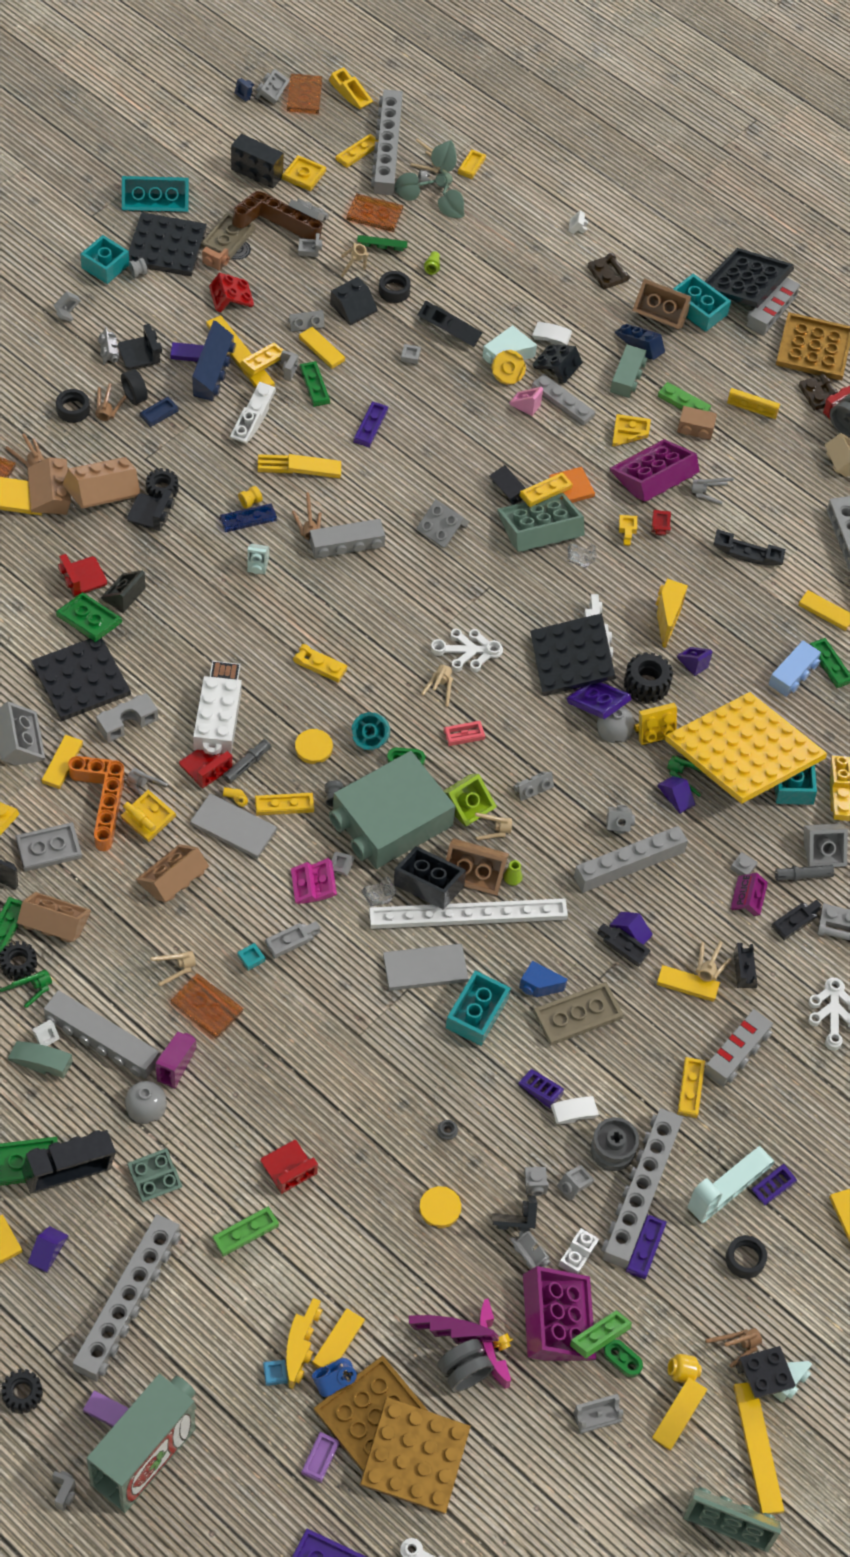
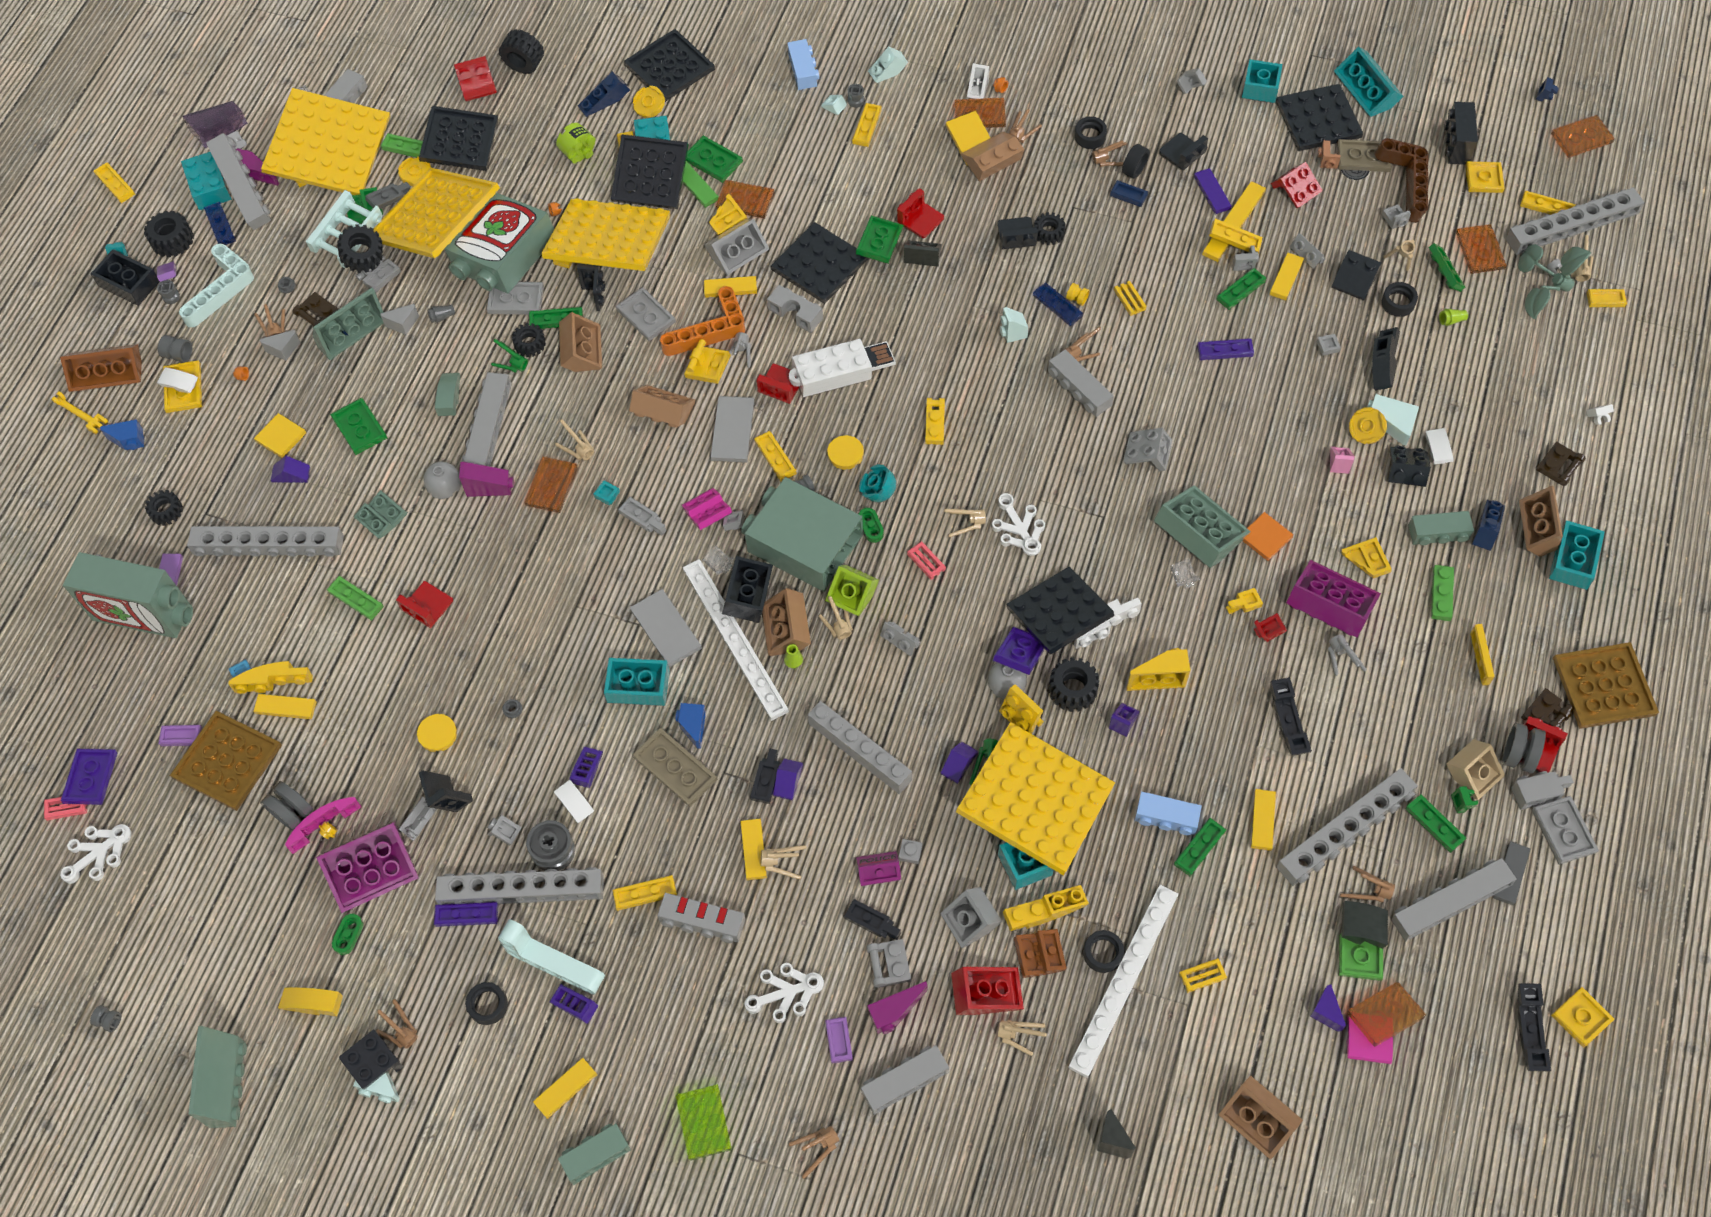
camera: 75 degrees right, 5 degrees up
(46, 1033) = (471, 386): white tile -> none
(68, 1161) = (356, 446): black piece -> none
(102, 482) = (1015, 183): medium nougat slope -> none
(108, 342) = (1177, 123): light grey hinge -> none
(138, 267) = (1273, 108): light grey wheel -> none
(212, 362) = (1201, 200): dark blue slope -> none
(237, 795) = (764, 418): yellow arm -> none
(252, 756) = (802, 410): dark grey pin -> none
(254, 413) = (1163, 258): white slope -> none
(272, 87) = (1568, 108): light grey bracket -> none
(307, 208) = (1437, 196): light grey plate -> none
(314, 466) = (1145, 326): yellow tile -> none
(331, 1377) = (246, 712): blue piece -> none
(350, 88) = (1617, 165): yellow slope -> none
(415, 1455) = (198, 802): pearl gold plate -> none
(456, 1328) = (317, 786): magenta slope -> none
(508, 484) = (1227, 483): black hinge -> none
(536, 1181) = (492, 798): light grey bracket -> none
(545, 489) = (1240, 513): yellow tile -> none
(564, 400) = (1367, 489): light grey plate -> none
(578, 1252) = (437, 860): white slope -> none
(598, 1413) = (287, 933): light grey hinge -> none
(601, 1334) = (359, 905): bright green plate -> none
(613, 820) = (897, 720): light grey brick -> none
(683, 1367) = (354, 988): yellow head -> none
(697, 423) = (1418, 612): medium nougat brick -> none
(745, 966) = (794, 892): black hinge -> none
(749, 277) = (1644, 585): black plate -> none
(758, 1450) = (295, 1088): yellow tile -> none
(764, 316) = (1630, 625): light grey brick -> none
(796, 873) = (932, 913): dark grey pin -> none

